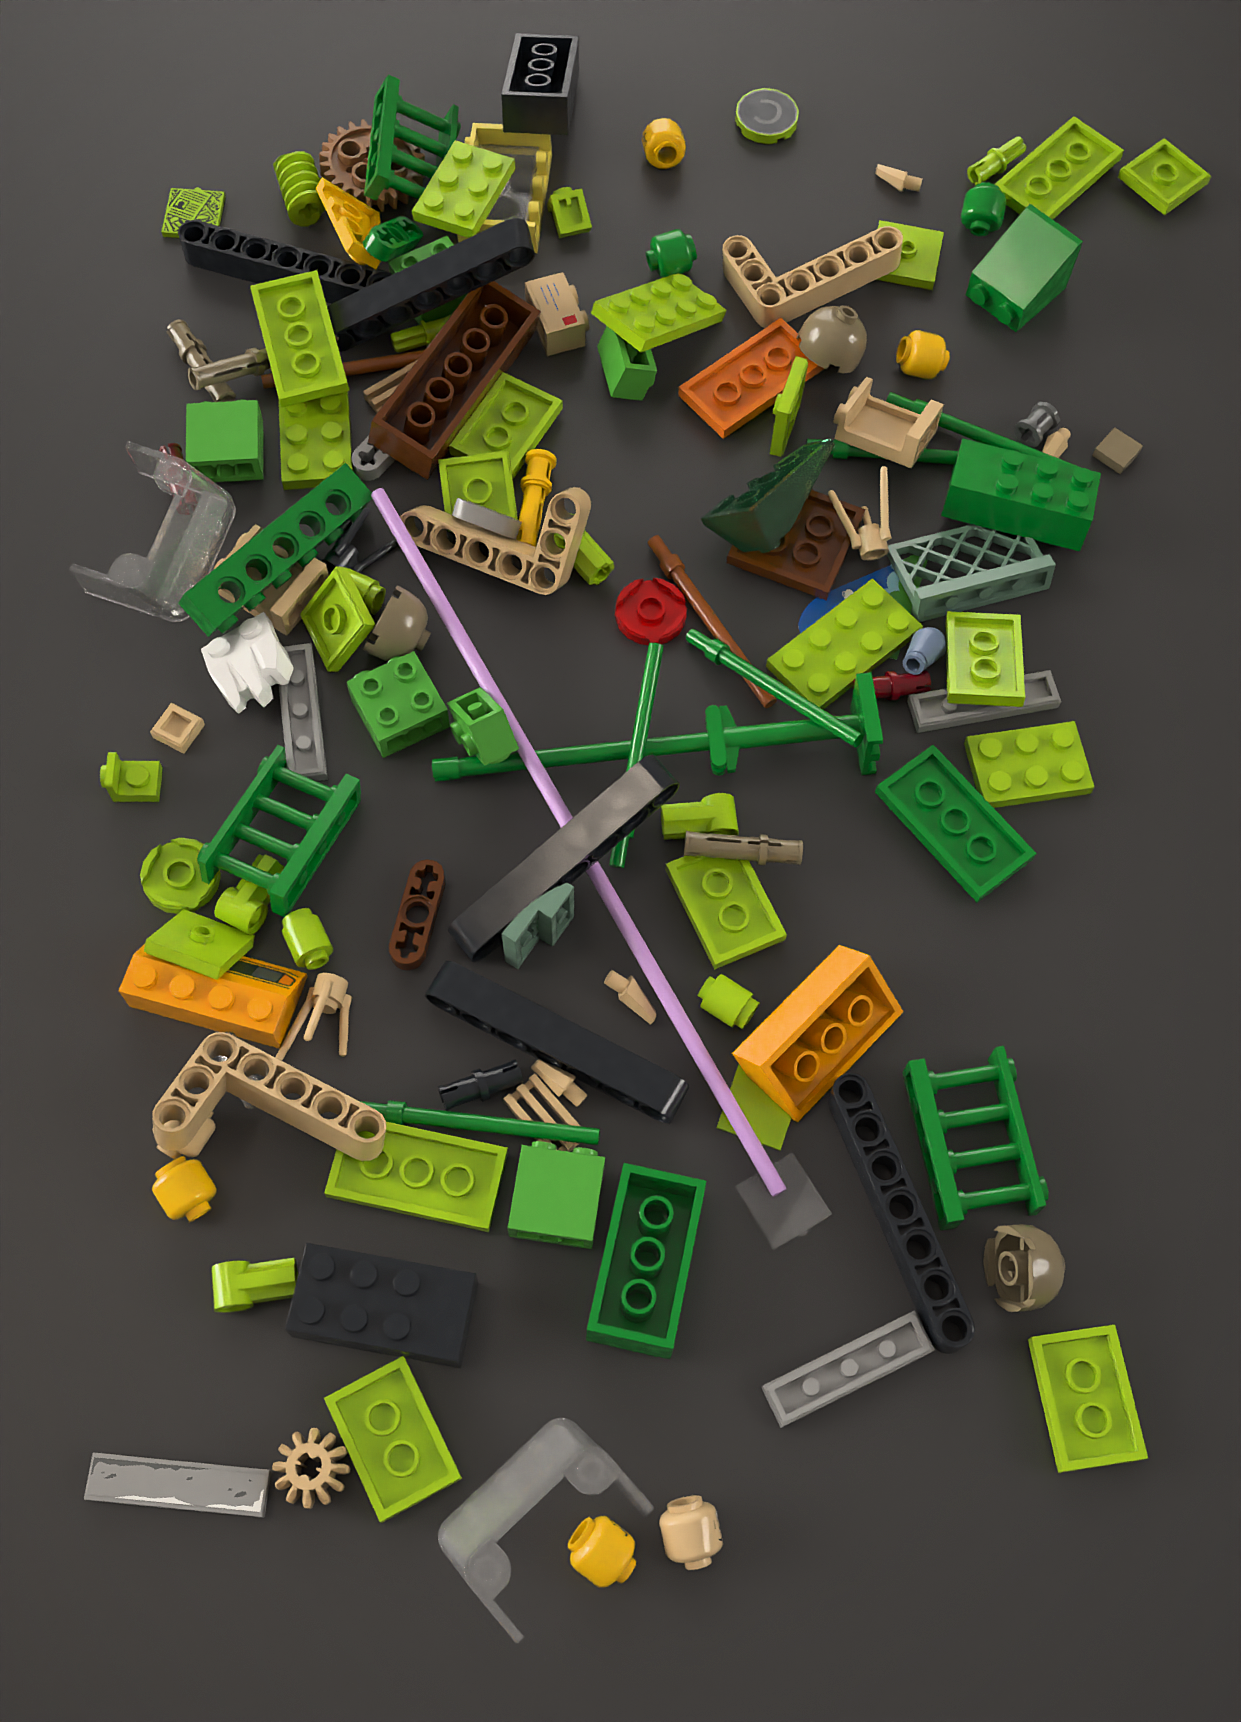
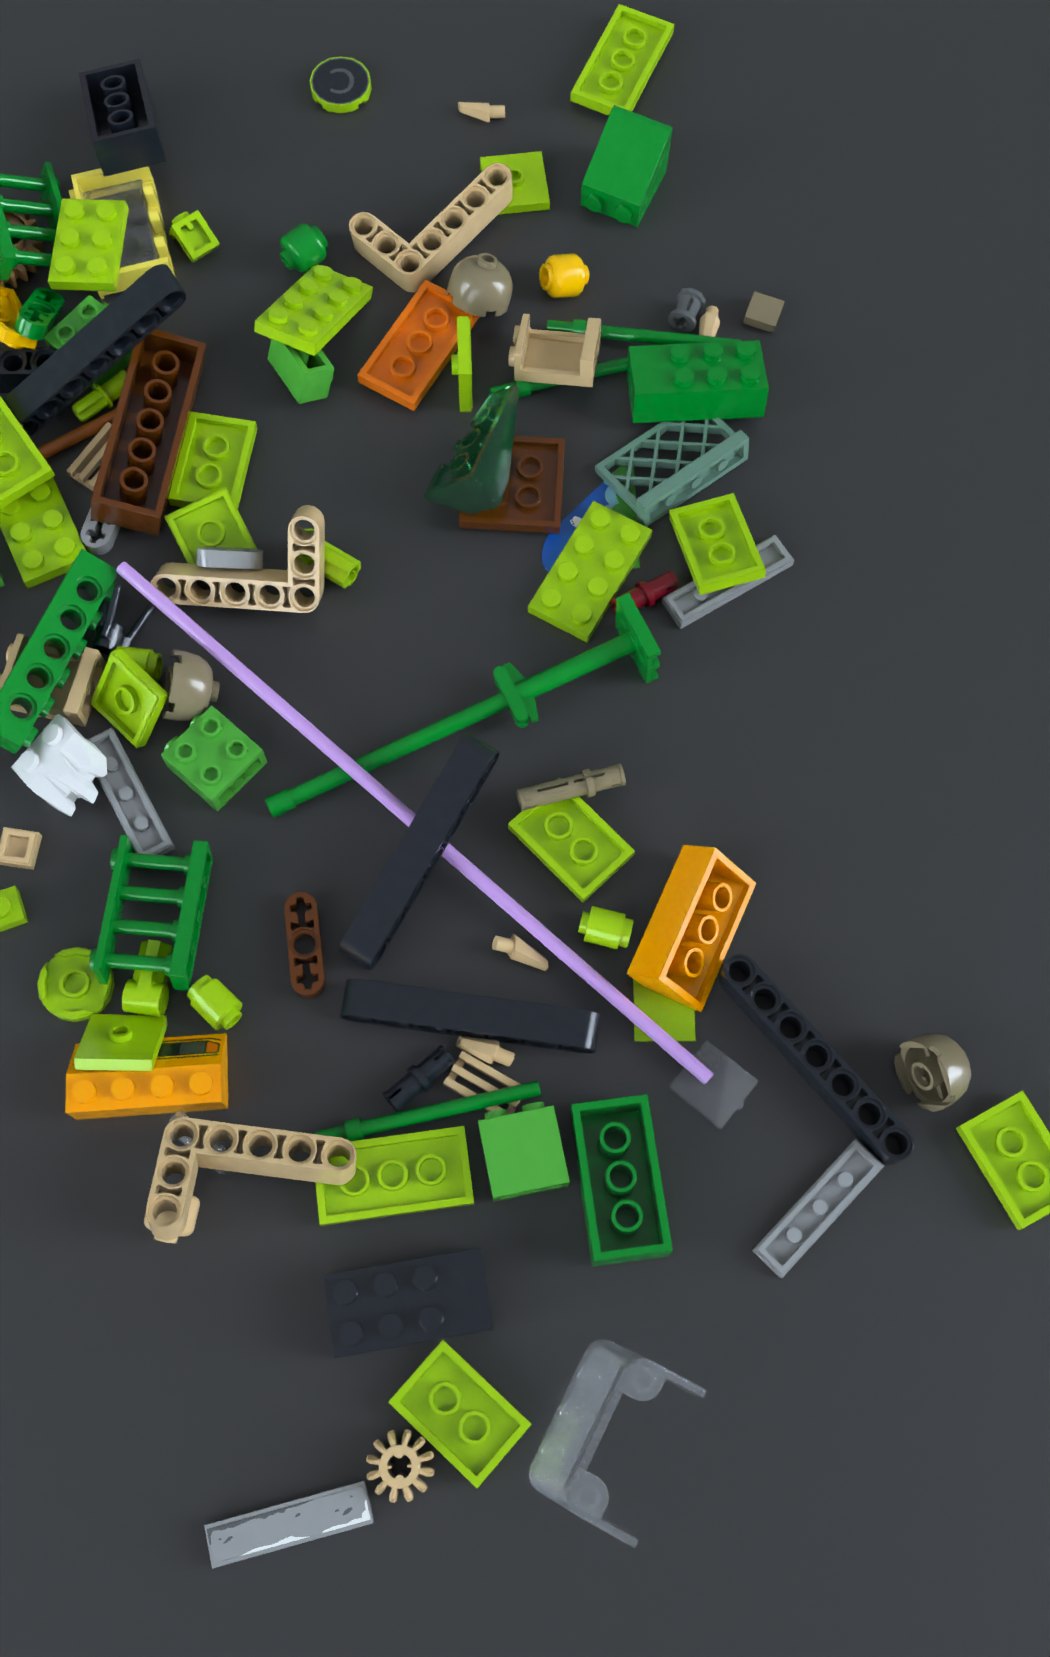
camera: 20 degrees left, 5 degrees up
(184, 1189) = (194, 1266): yellow head -> none
(242, 1284) = (279, 1329): lime piece -> none
(324, 997) = (252, 1049): tan plant -> none
(482, 727) = (300, 756): bright green brick -> none
(536, 487) = (262, 513): yellow pin -> none
(541, 919) = (420, 913): sand green slope -> none
(560, 321) = (226, 345): tan brick -> none
(602, 1551) = (672, 1440): yellow head -> none
(640, 732) = (443, 709): green bar -> none
(650, 611) = (408, 595): red tile -> none
(663, 143) = (256, 141): yellow head -> none
(674, 569) = (415, 548): dark orange bar -> none
(691, 1532) = (739, 1395): tan head -> none
(712, 815) = (530, 768): lime piece -> none
(720, 654) = (484, 614): green bar -> none
(871, 538) = (580, 465): tan plant -> none
(924, 649) = (662, 552): sand blue cone -> none
(943, 1163) = (836, 1004): green fence -> none
(955, 823) = (742, 700): green plate -> none
(983, 209) = (569, 118): green head -> none
(996, 160) = (564, 67): lime axle -> none
(1029, 764) = (785, 626): lime plate -> none
(1164, 176) = (717, 38): lime plate -> none

